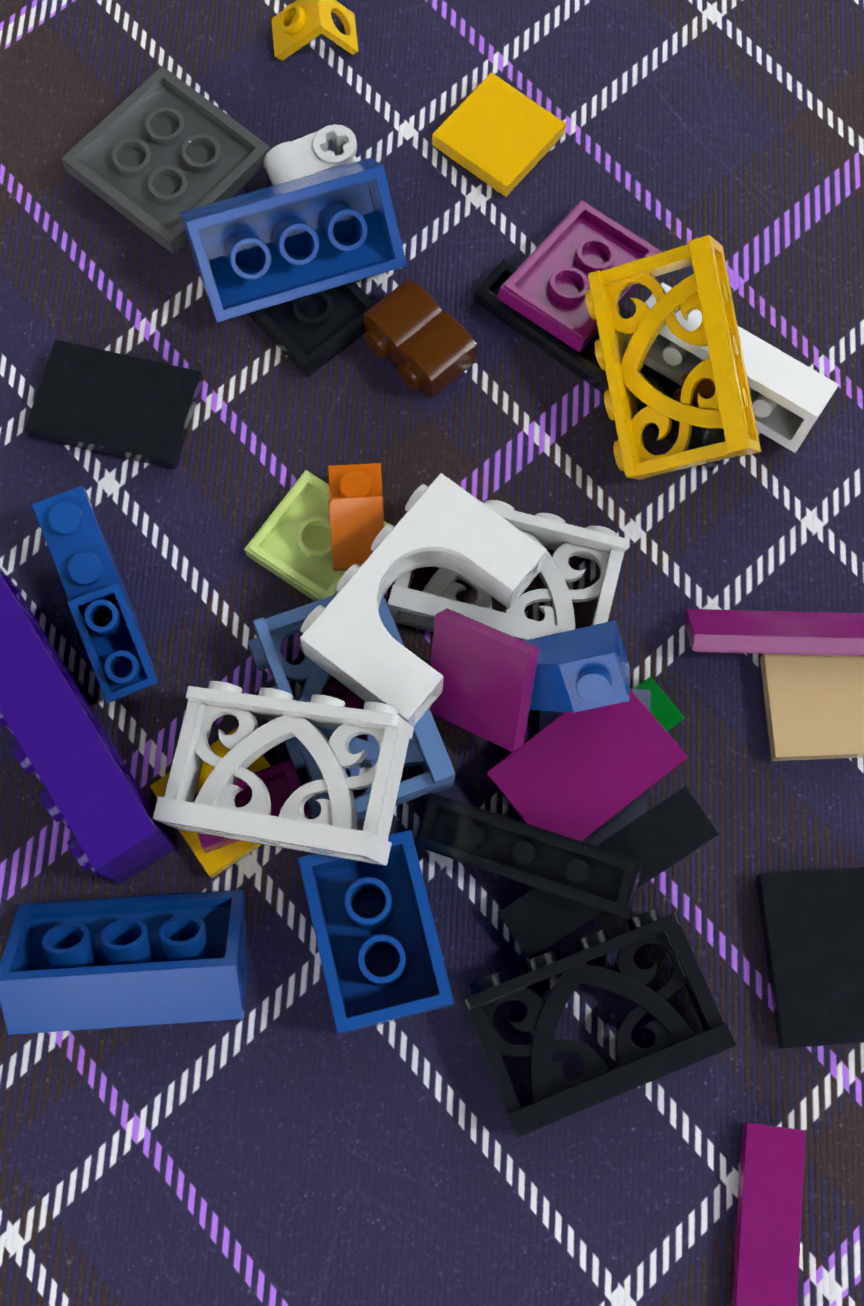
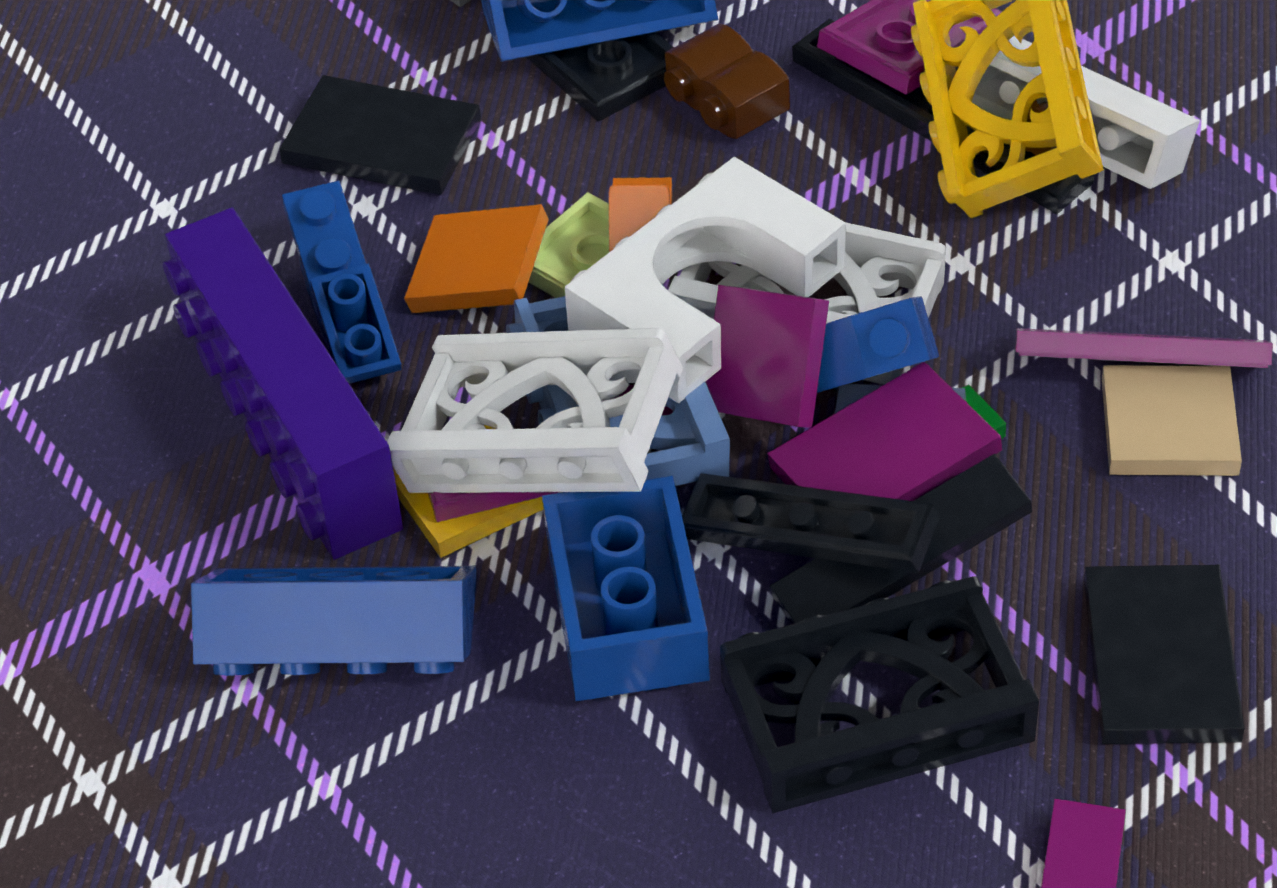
camera: 10 degrees right, 25 degrees down
(214, 554) = (476, 259): none -> orange tile

